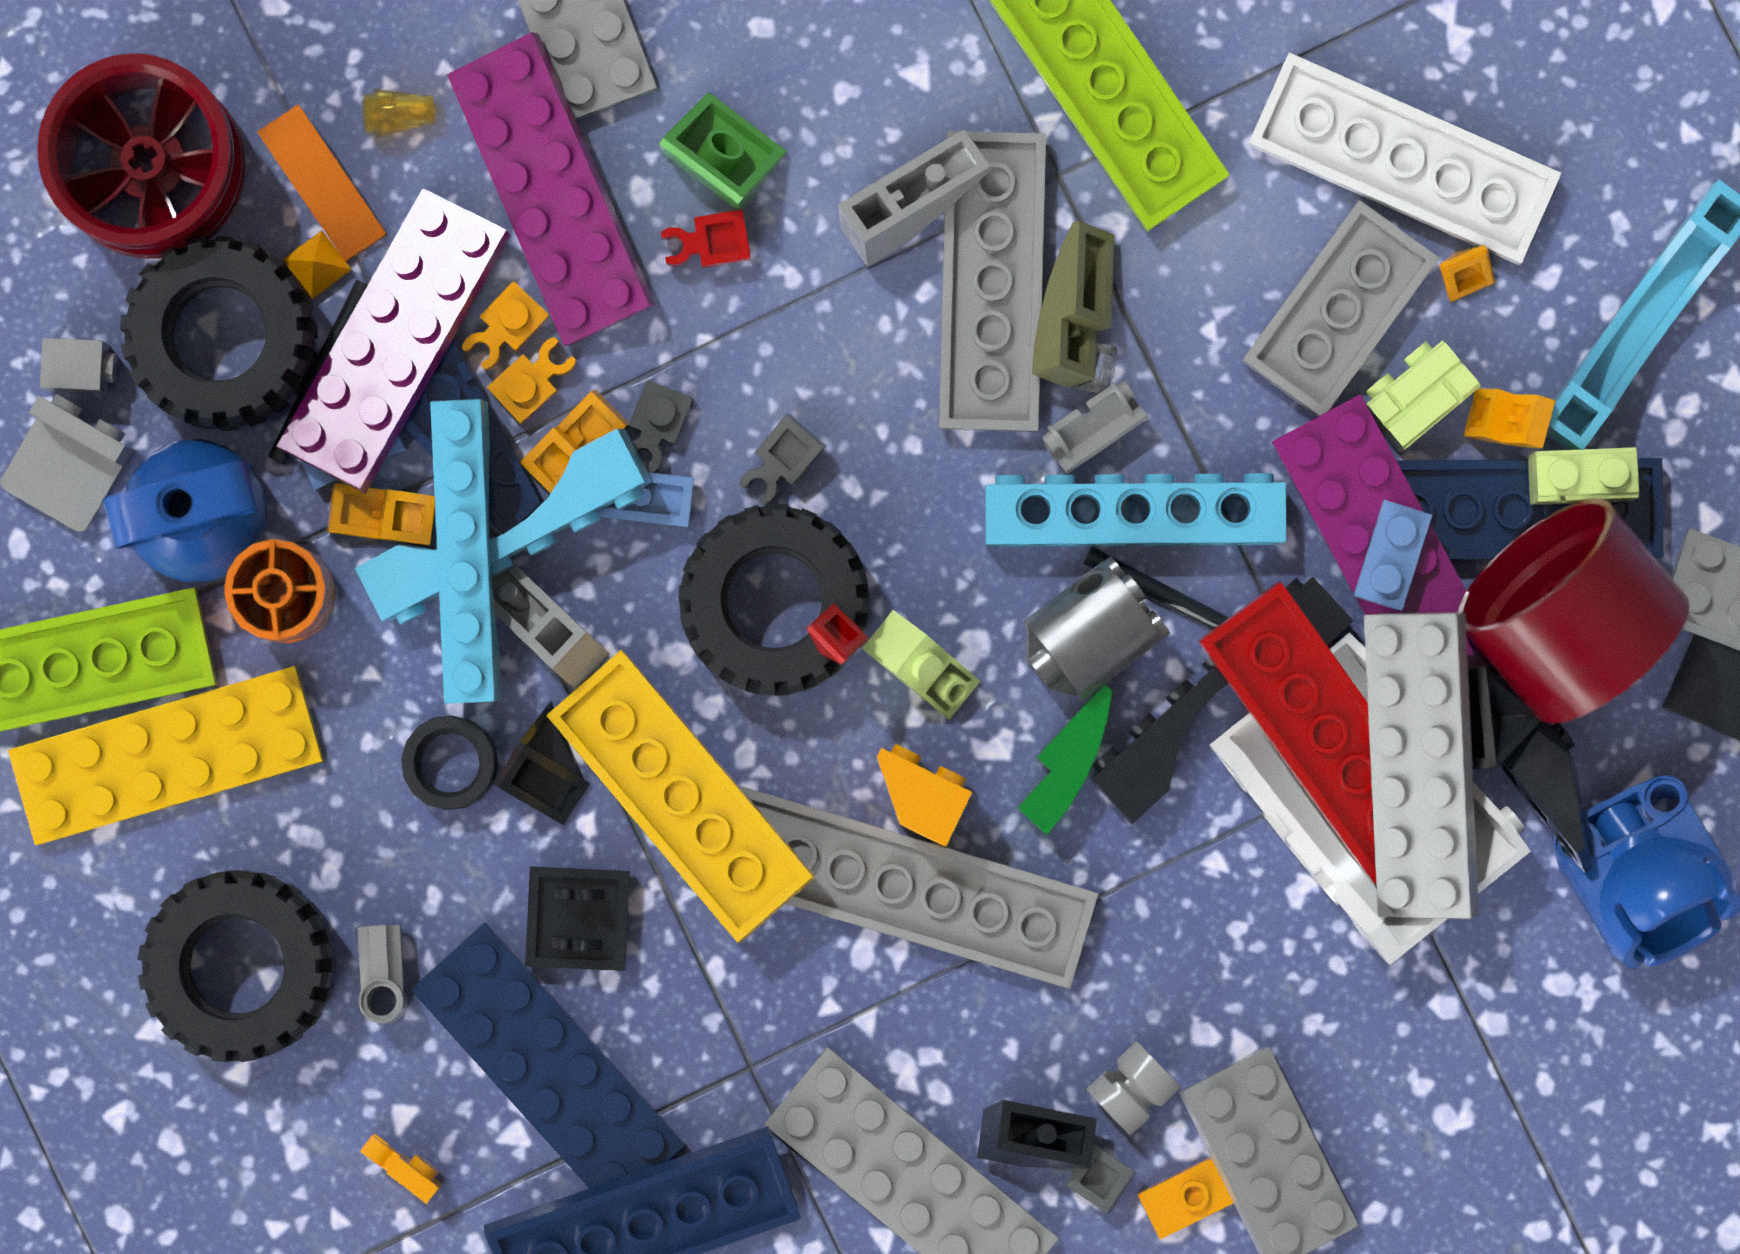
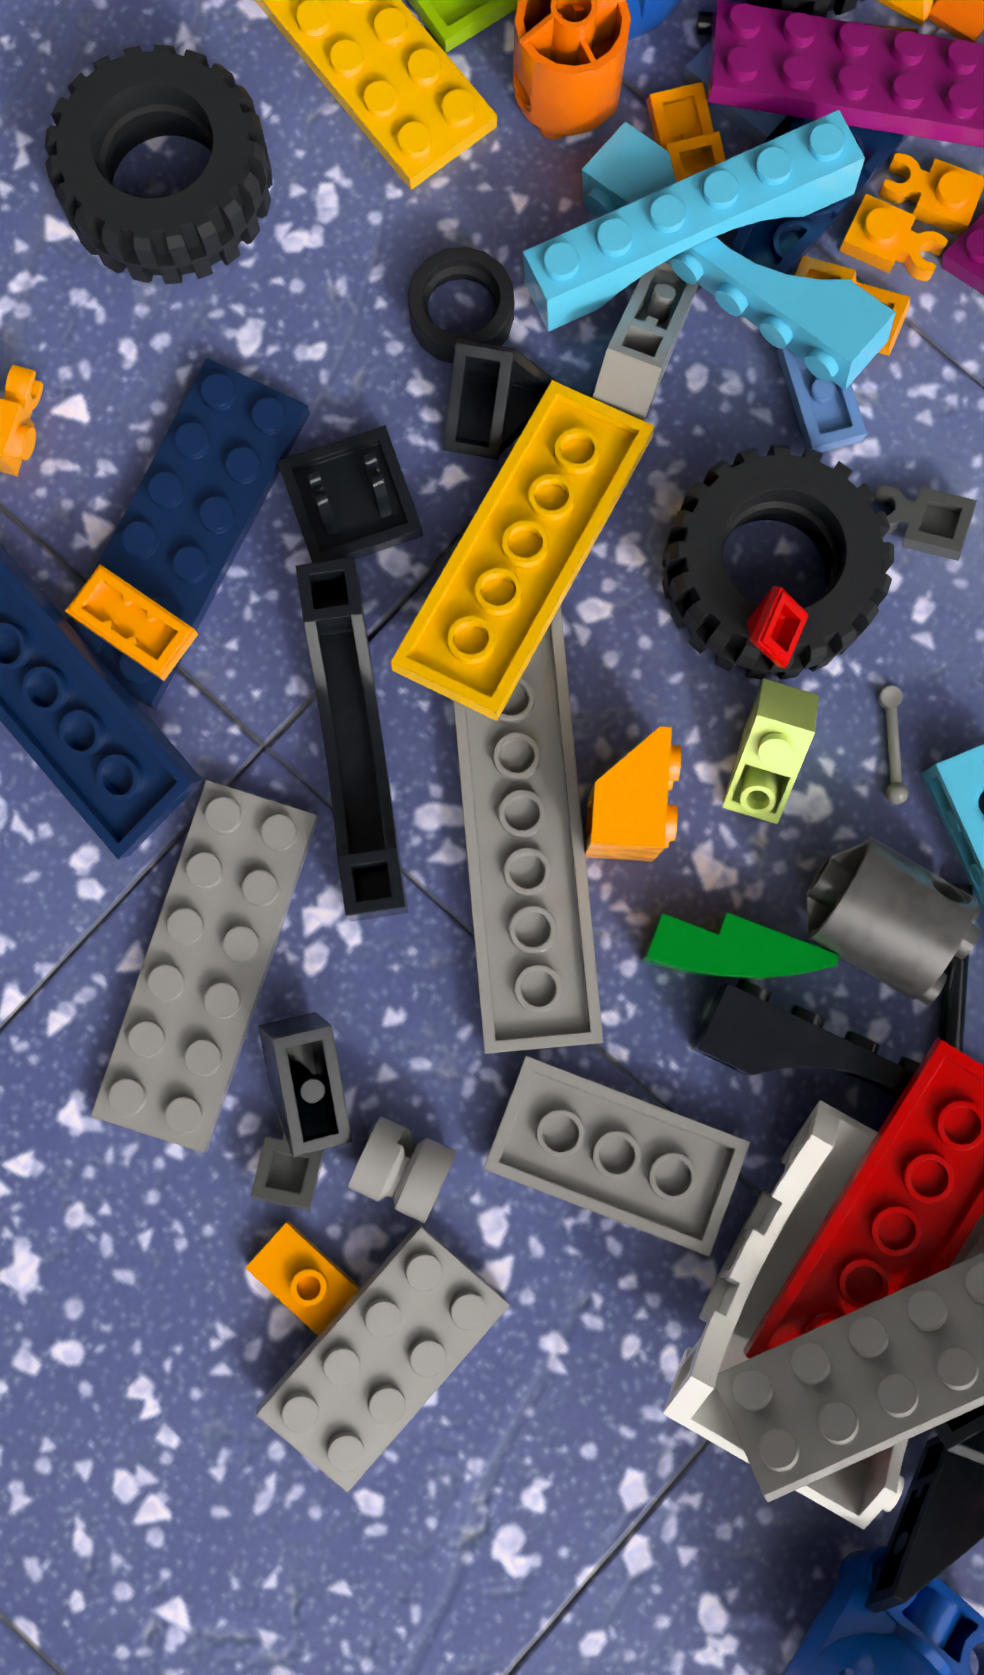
camera: 65 degrees right, 5 degrees down
(381, 966) = (216, 317): light grey piece -> none
(618, 1134) = (131, 622): none -> light orange plate
(658, 418) = (908, 380): dark grey plate -> none
(782, 995) = (352, 740): none -> black arch
(915, 546) = (890, 699): none -> light grey hinge
(1188, 917) = (617, 1155): none -> light grey plate

